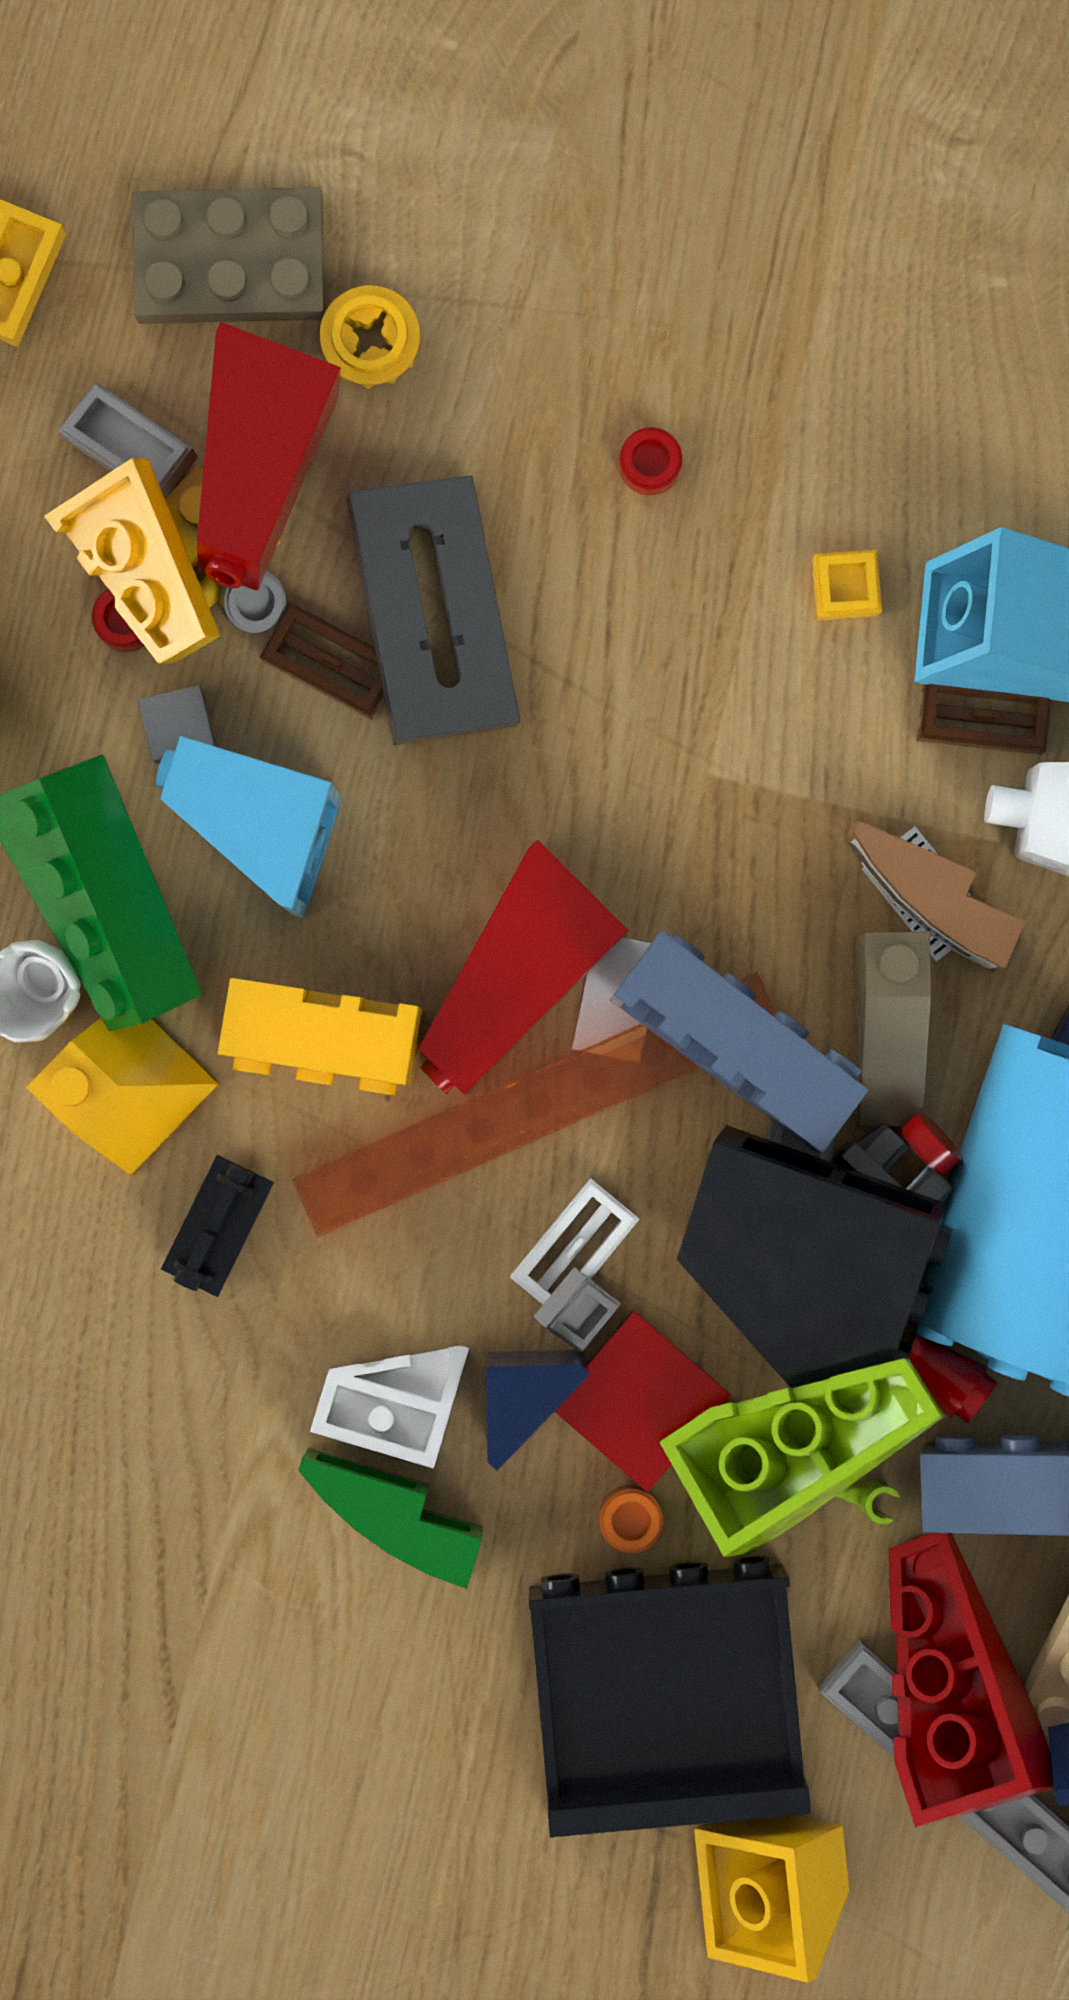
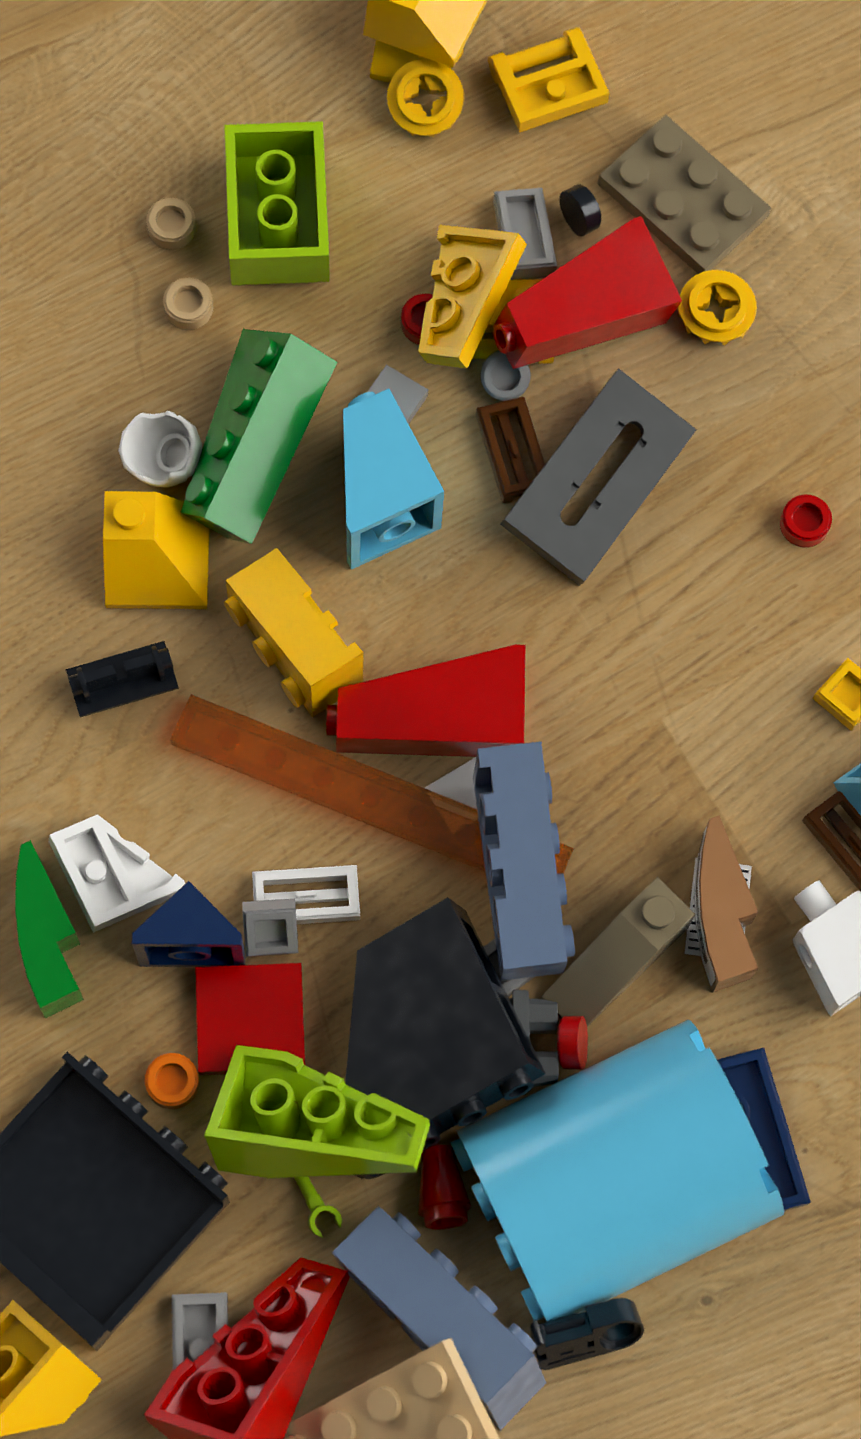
camera: 40 degrees right, 15 degrees down
(154, 368) = (580, 209): none -> black tile

